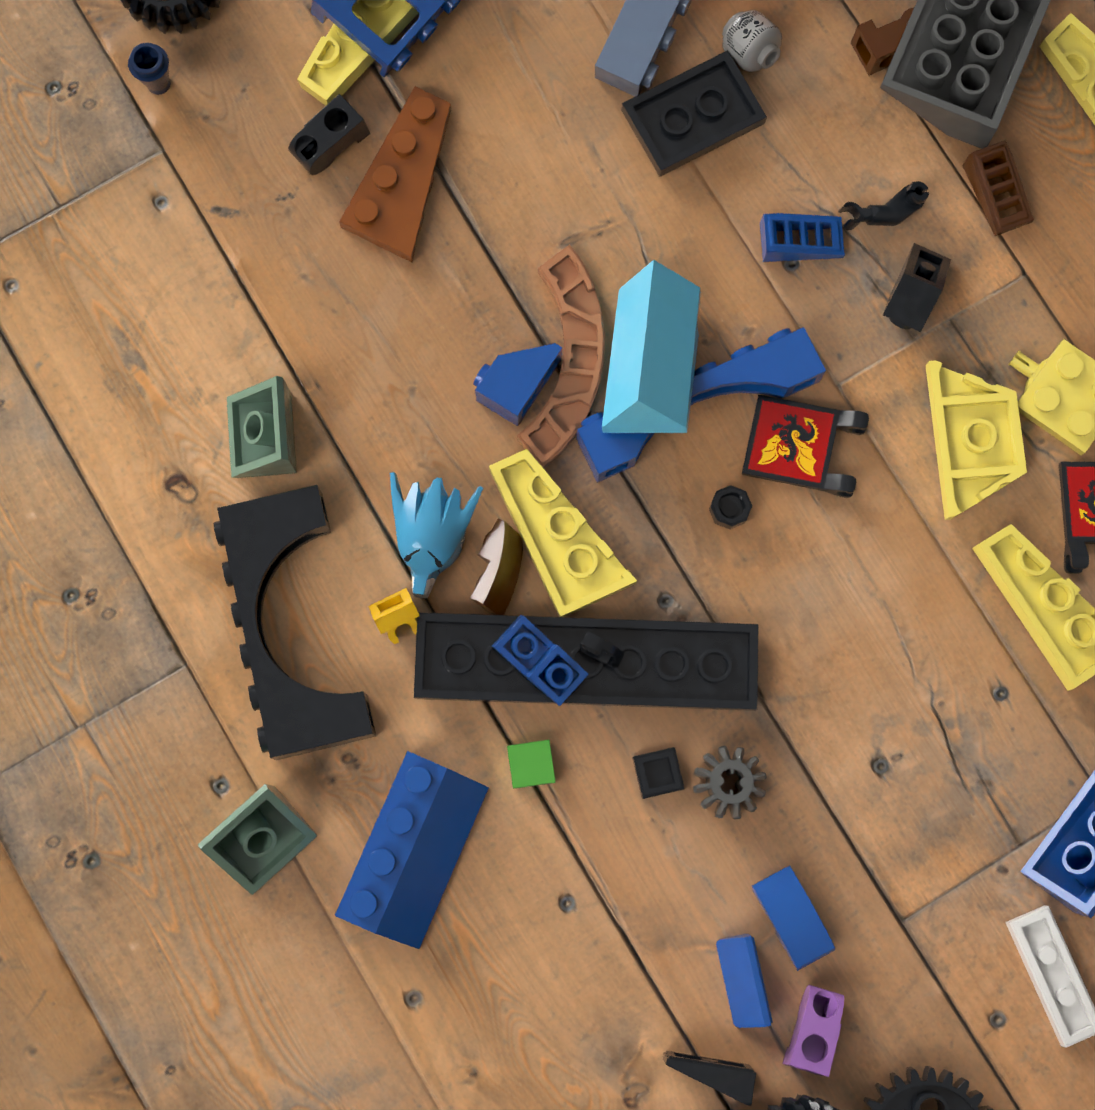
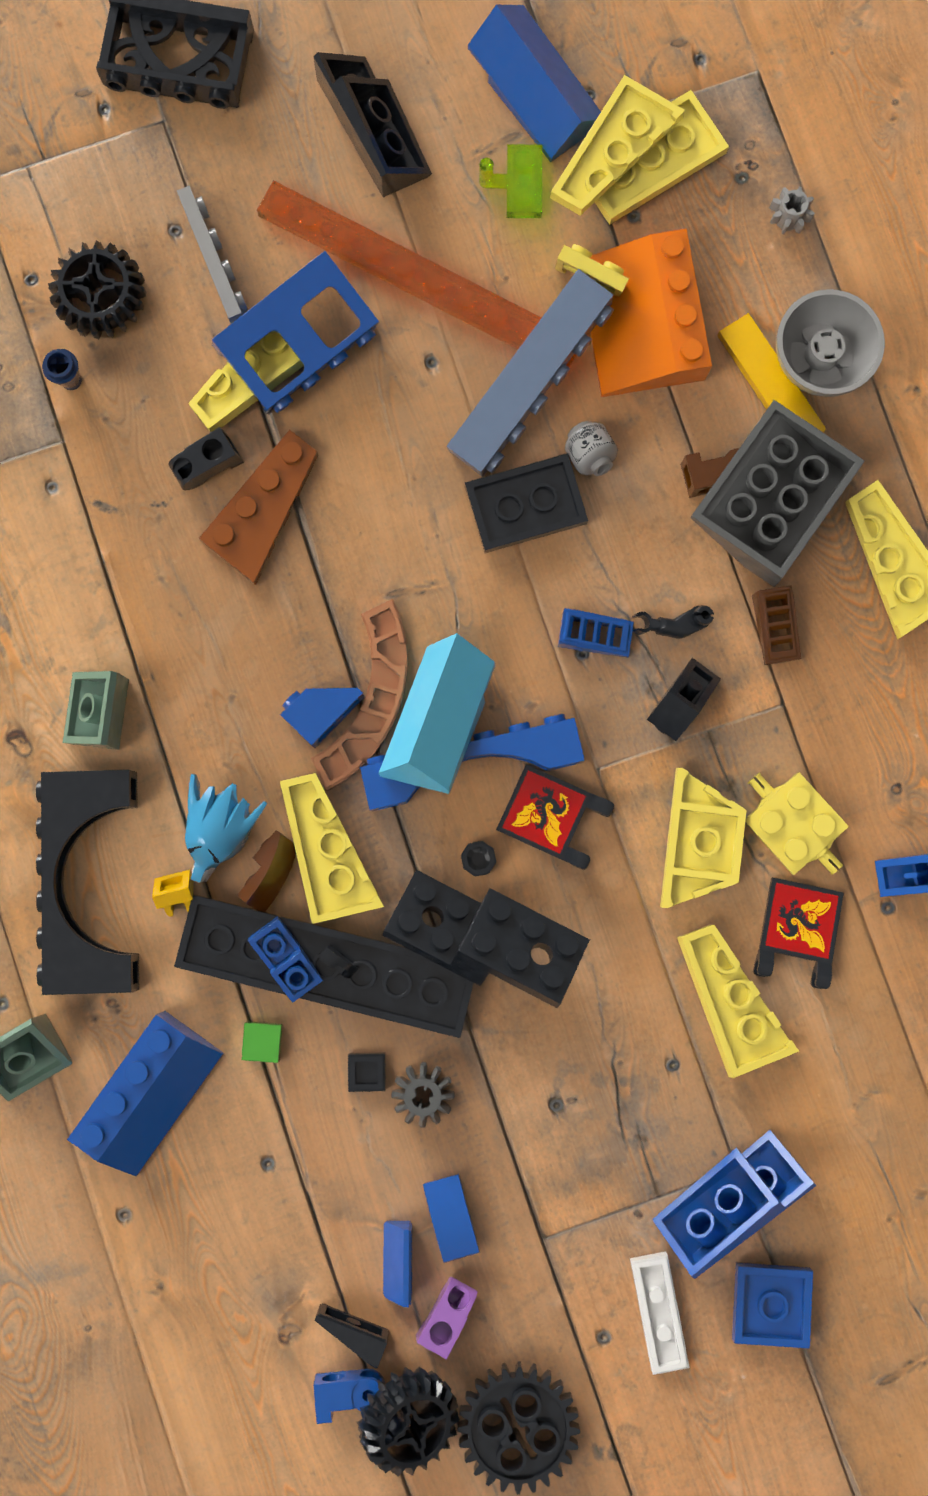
camera: 15 degrees right, 5 degrees up
(770, 583) = (487, 938): none -> black bracket

